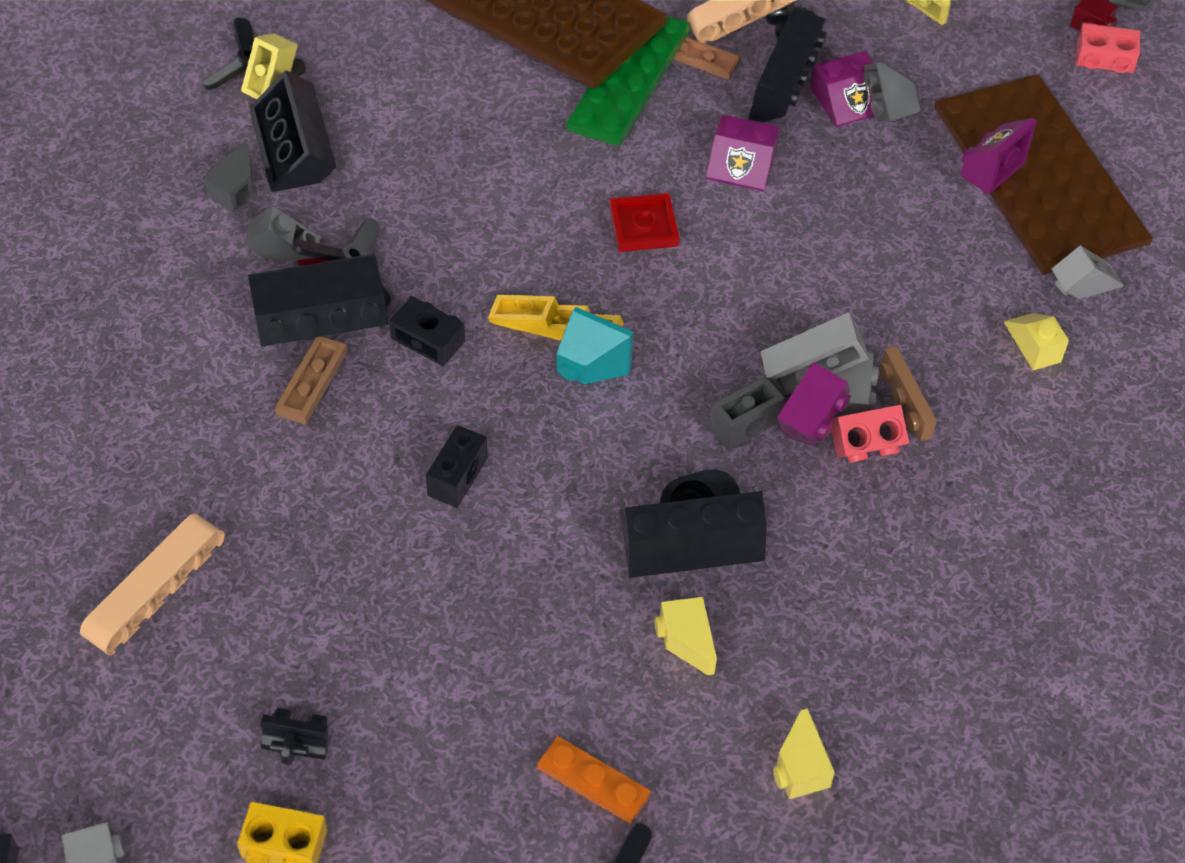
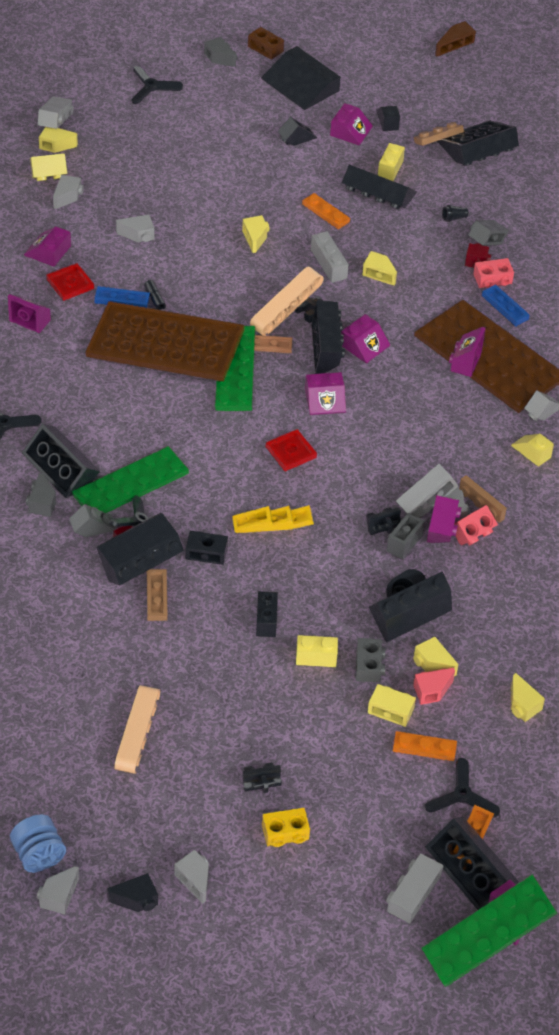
camera: 25 degrees left, 5 degrees down
(267, 61) = (22, 424): light yellow slope -> none
(380, 196) = (132, 480): none -> green plate
(501, 553) = (316, 651): none -> light yellow brick
(573, 597) = (369, 660): none -> dark grey brick
(574, 688) = (391, 705): none -> light yellow brick
(593, 349) = (307, 527): teal slope -> none
(663, 679) = (433, 685): none -> coral slope
(726, 377) = (383, 521): none -> black hips
(890, 92) = (391, 334): dark grey slope -> none
(1104, 102) = (505, 305): none -> blue plate

